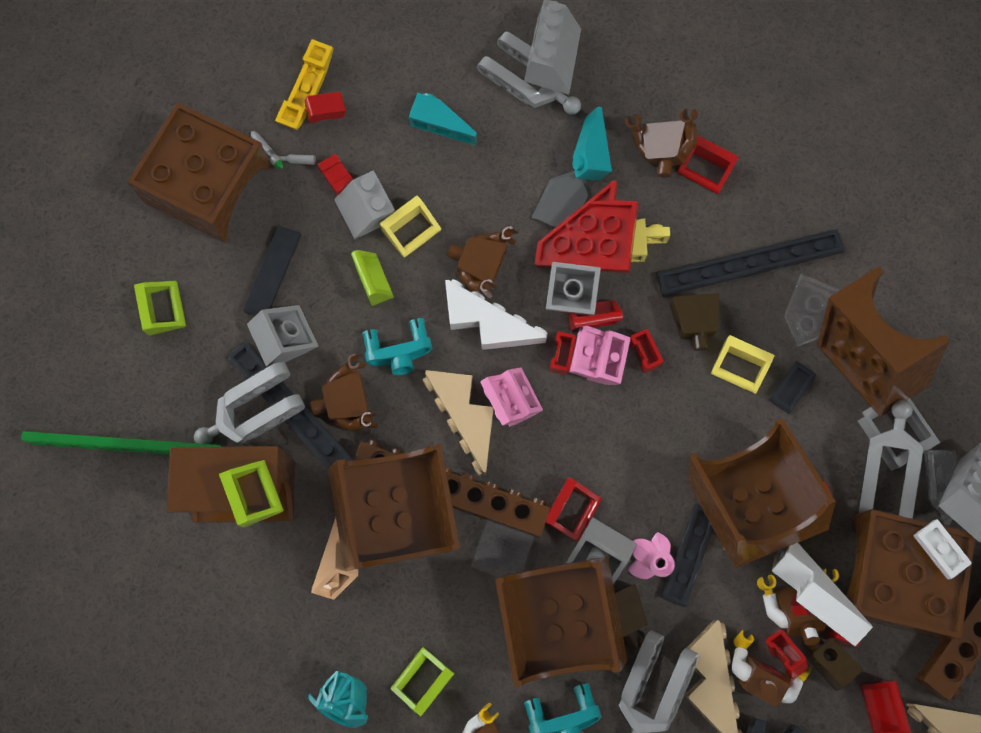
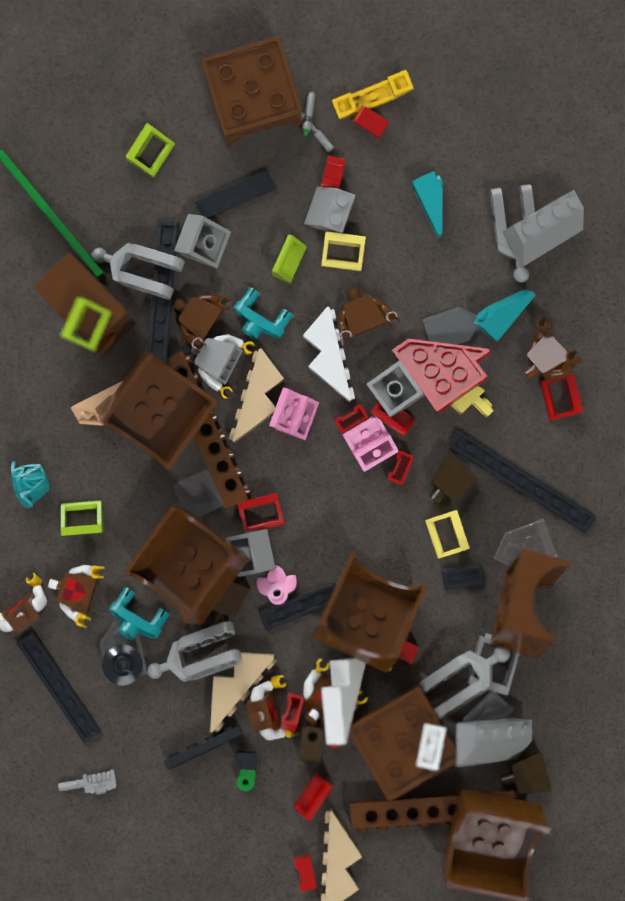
camera: 50 degrees right, 10 degrees up
(400, 417) = (219, 359): none -> light grey torso

